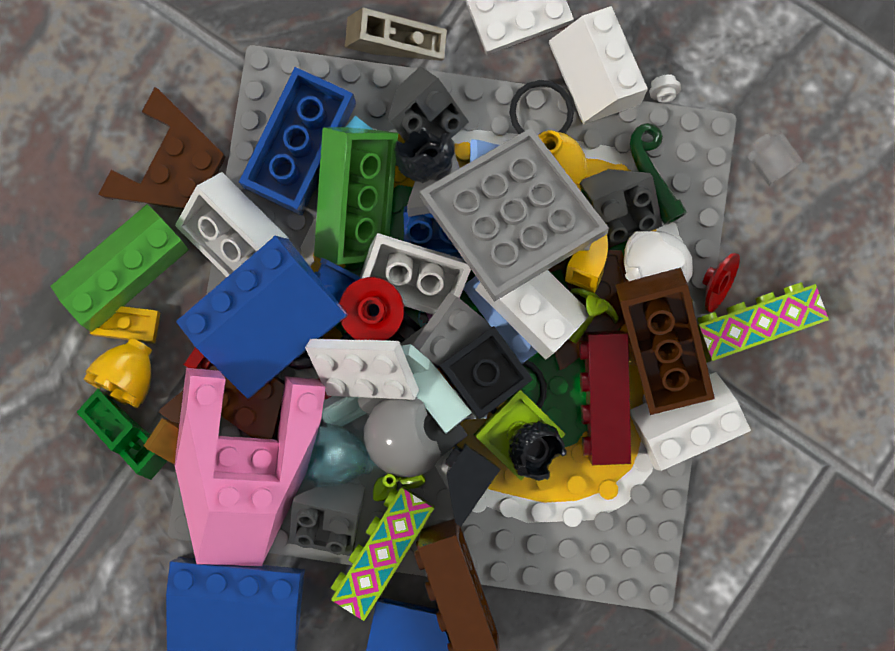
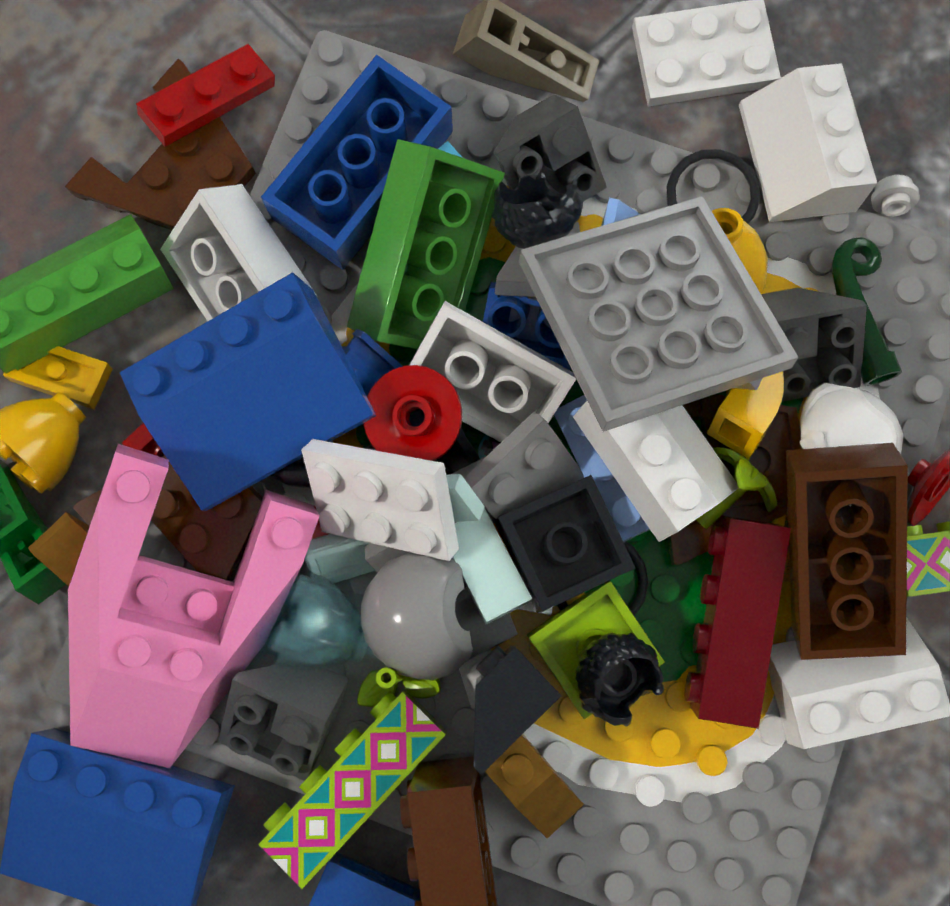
camera: 10 degrees right, 5 degrees down
(181, 110) = (205, 95): none -> red plate
(496, 528) = (534, 786): none -> pearl gold slope

